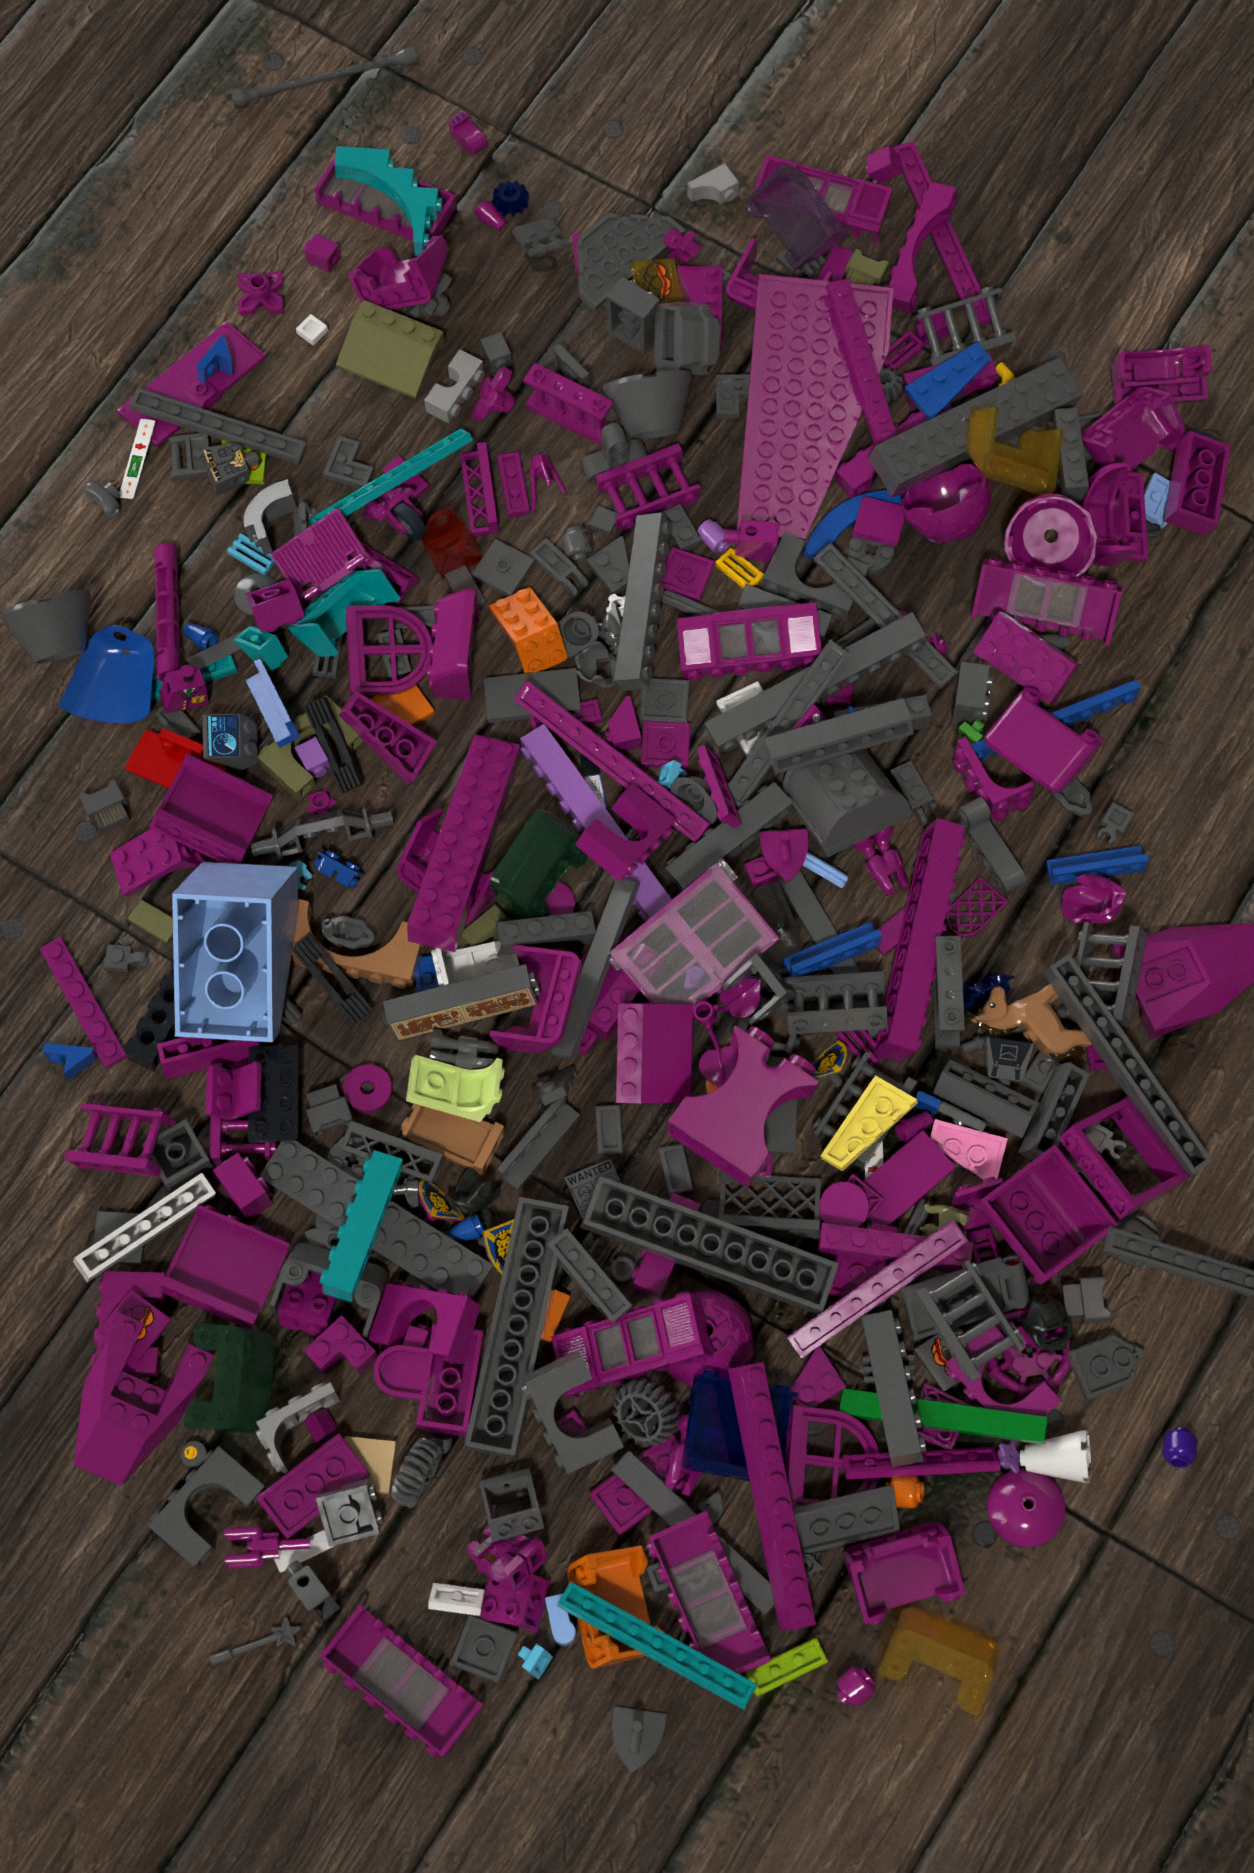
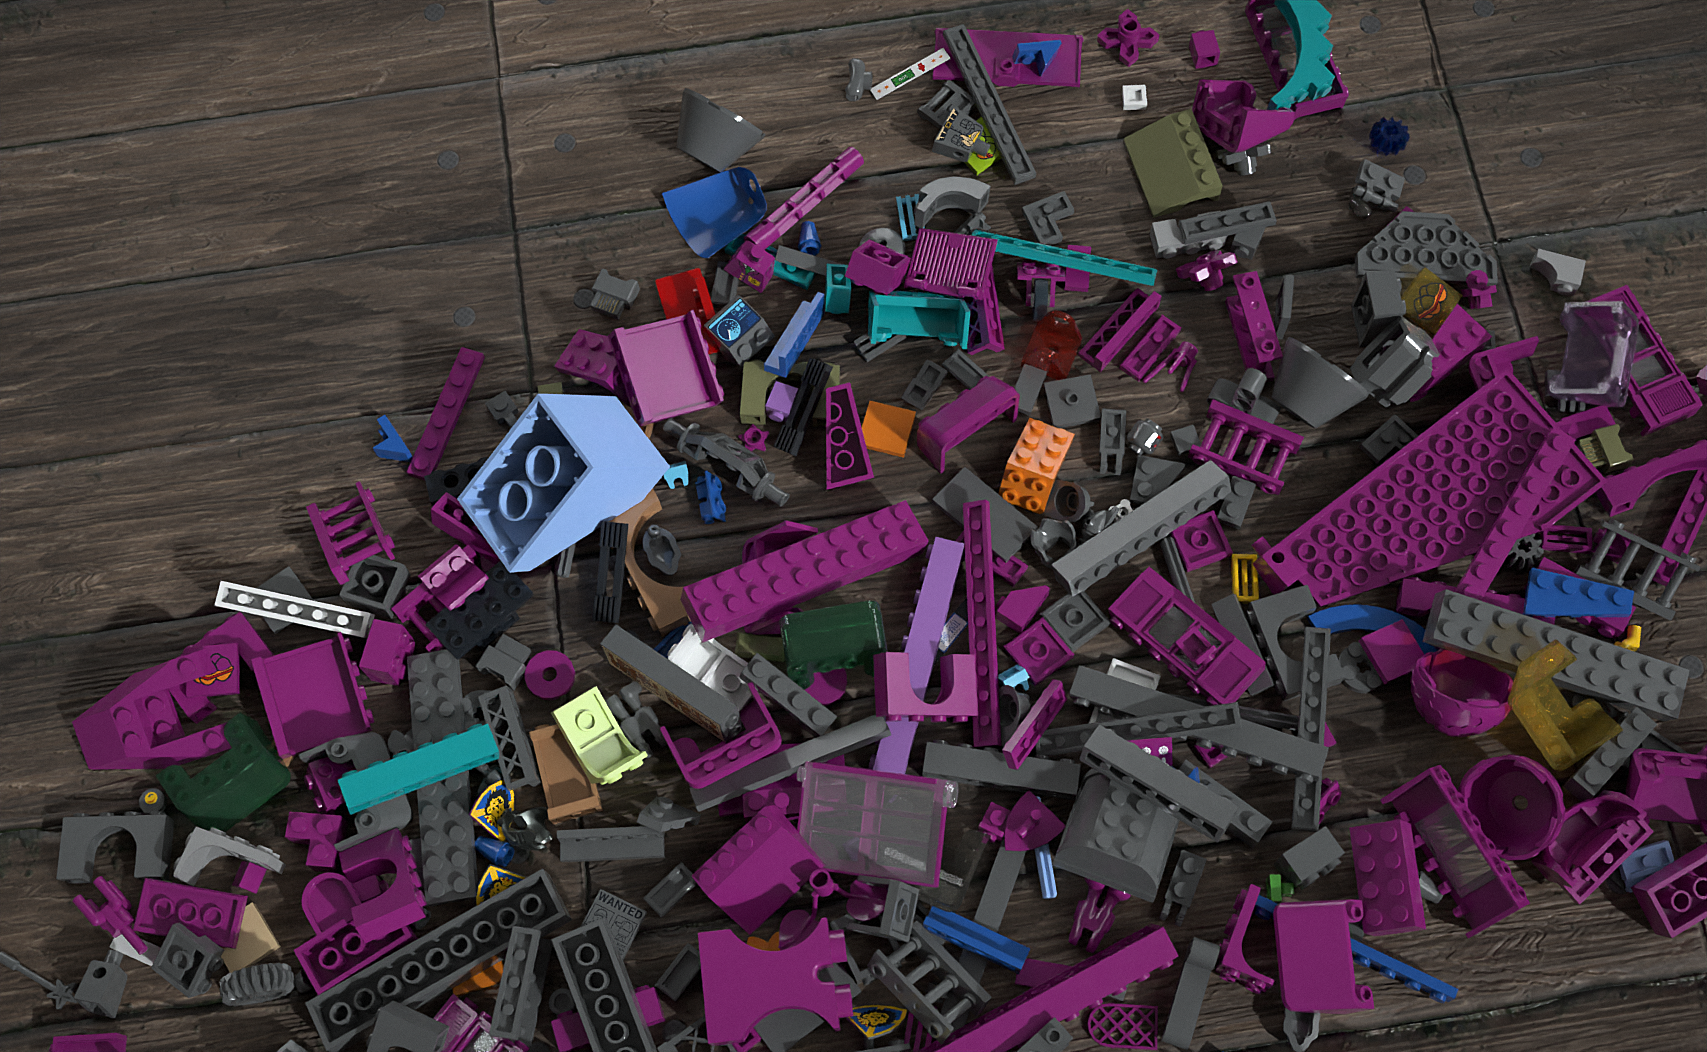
camera: 50 degrees right, 0 degrees up
(357, 650) = (897, 355): magenta window -> none
(467, 134) = (1411, 59): magenta leg -> none
(474, 352) = (1227, 222): none -> dark grey tile
(489, 215) = (1359, 134): magenta cone -> none
(712, 535) = (1251, 530): medium lavender brick -> none
(764, 636) = (1195, 647): none -> magenta bracket

